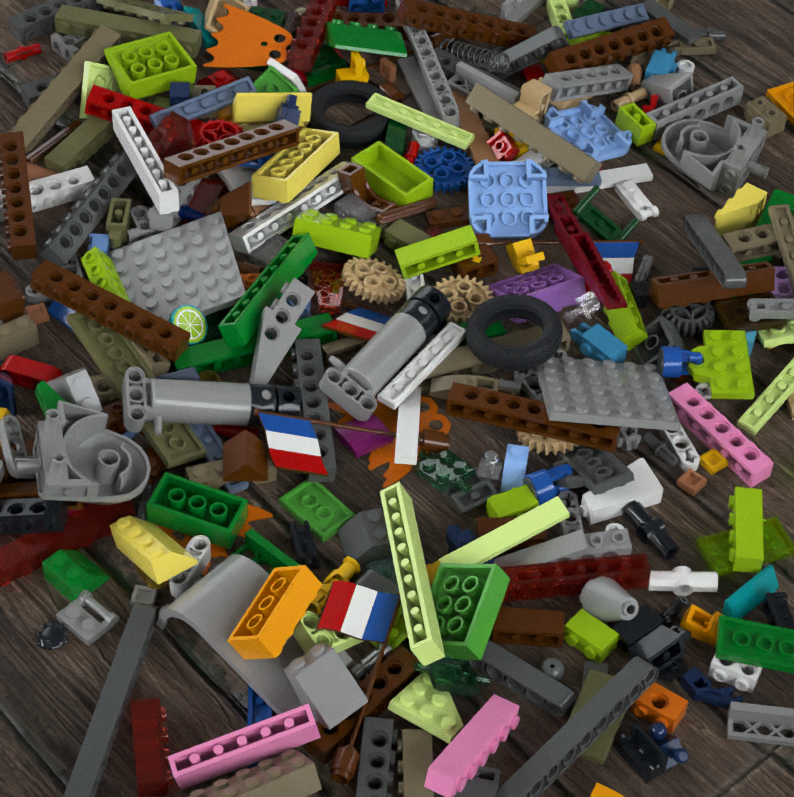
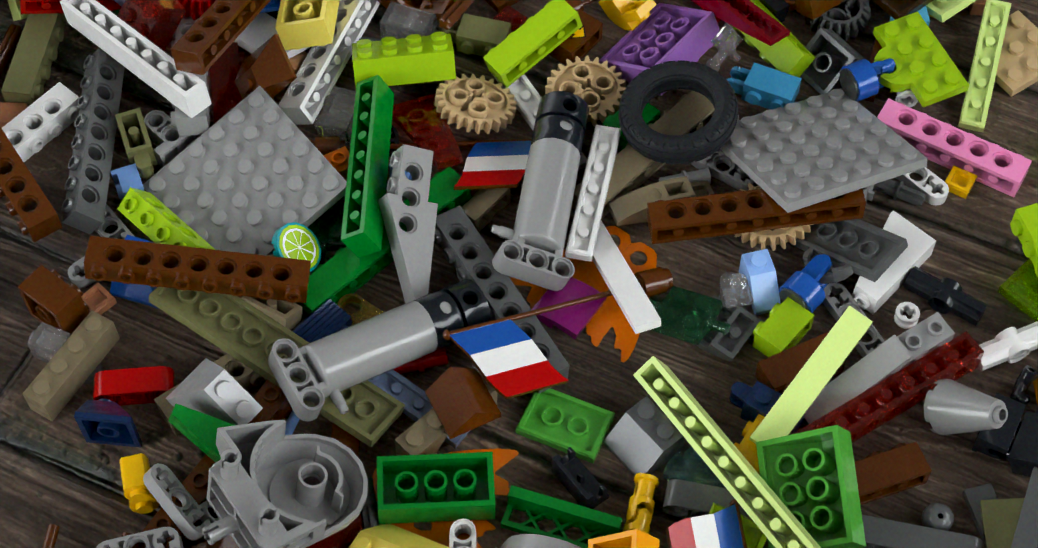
camera: 20 degrees left, 10 degrees up
(190, 214) = (223, 101): clear blue pin -> none
(590, 636) = (956, 457): lime brick -> none
(691, 482) = (951, 216): nougat tile -> none

